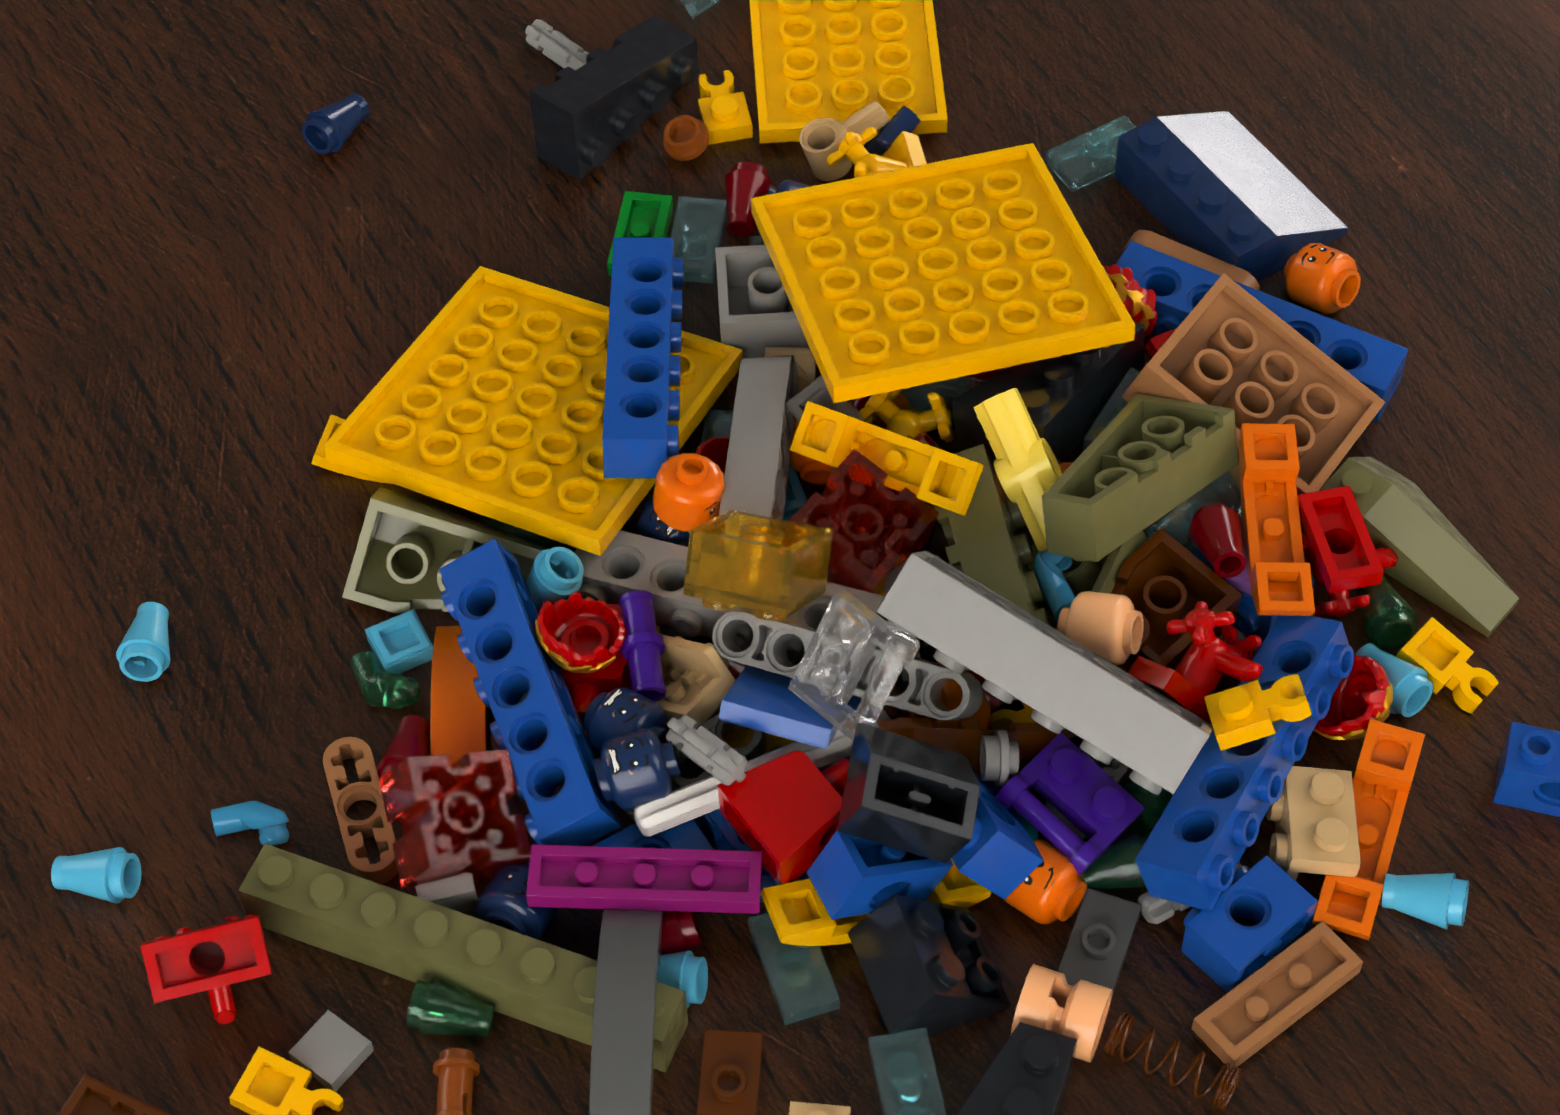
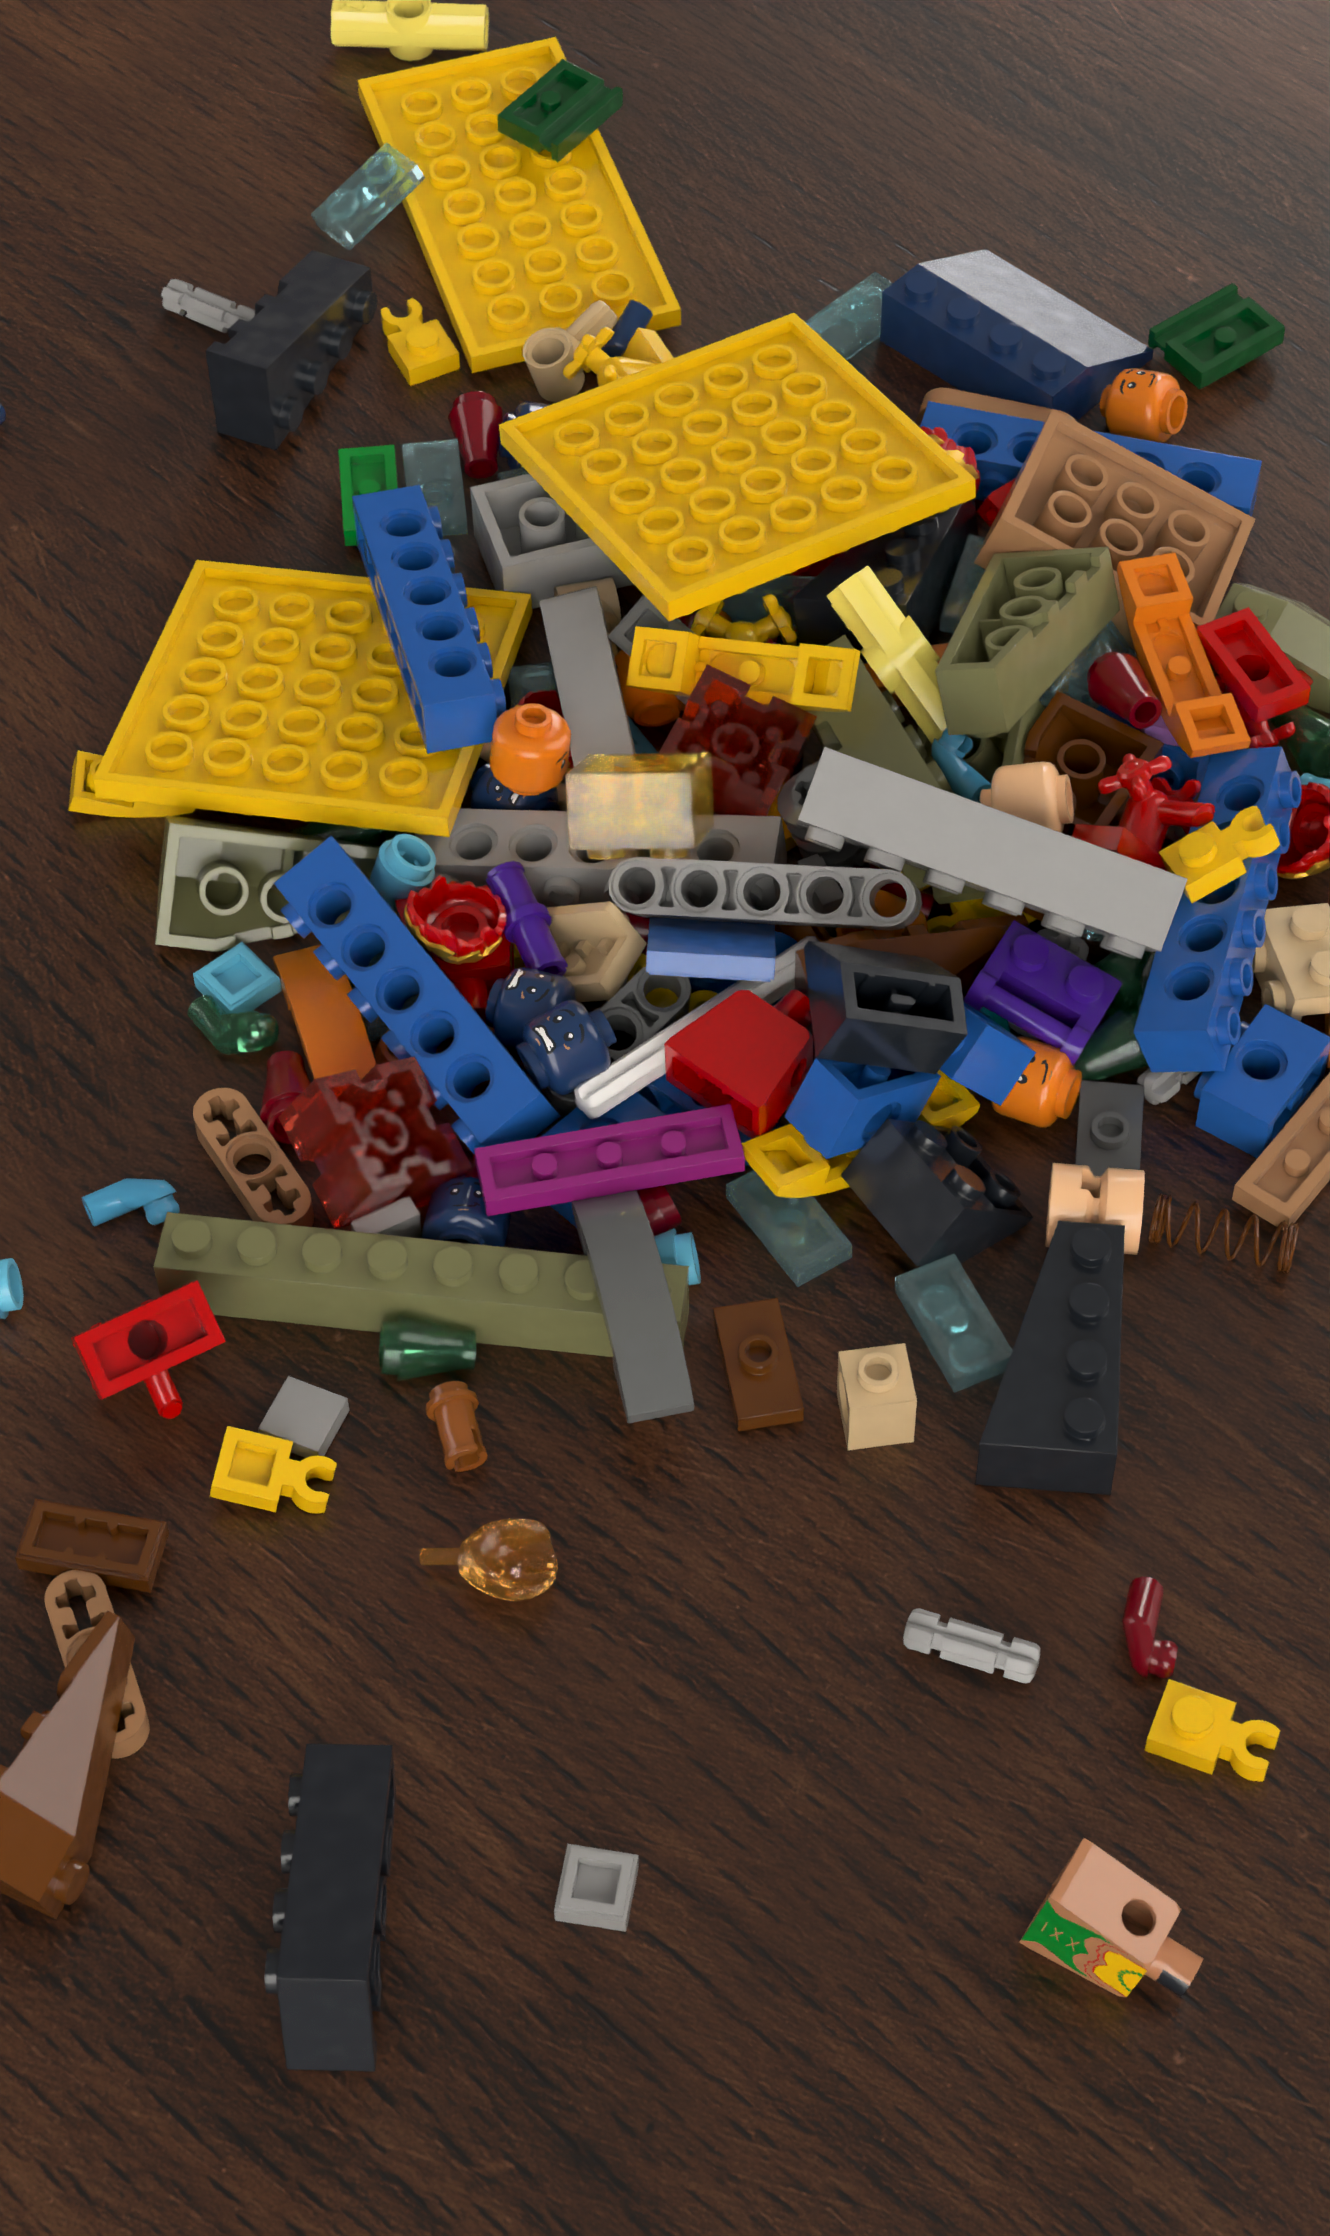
camera: 15 degrees left, 0 degrees up
(685, 138) = (387, 380): dark orange plate -> none
(707, 750) = (642, 1008): light grey axle -> none
(840, 657) = (766, 878): clear plate -> none
(998, 758) = (958, 954): light grey plate -> none
(1405, 225) = (1216, 336): none -> dark green plate

